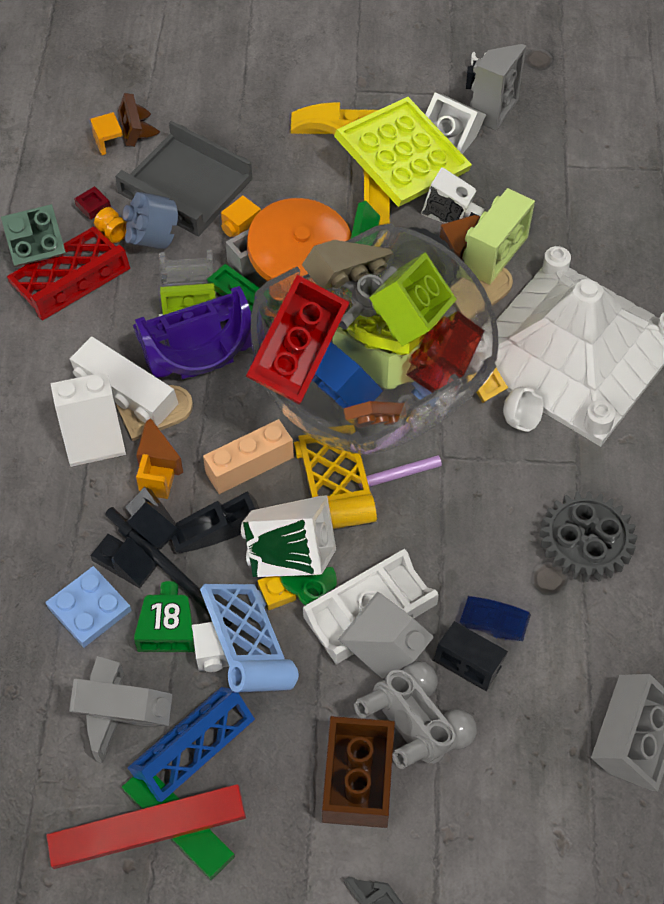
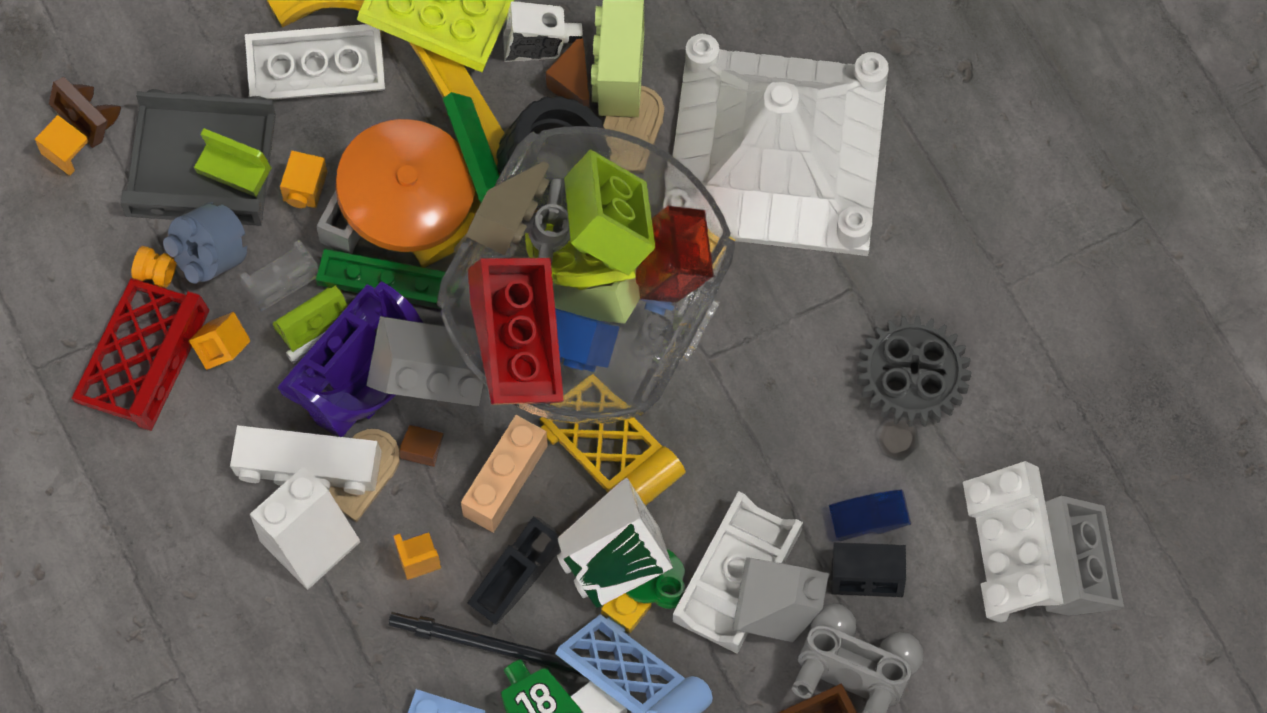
camera: 30 degrees left, 10 degrees up
(33, 235) = (75, 334): sand green slope -> none
(91, 202) = (109, 248): dark red plate -> none
(121, 285) = (220, 340): none -> light orange panel
(124, 559) = (442, 664): black slope -> none
(151, 518) = (444, 602): black slope -> none
(158, 448) = (397, 517): dark orange slope -> none
(202, 188) = (232, 163): none -> lime panel
(206, 413) = (421, 445): none -> dark orange slope
(228, 350) = (420, 363): none -> light grey slope
(297, 157) = (315, 62): none -> white slope
(373, 413) = (638, 364): dark orange wing -> none
(402, 471) = (677, 398): lavender bar -> none
(523, 409) = (766, 258): white hair -> none
(595, 691) = (1014, 540): none -> white piece

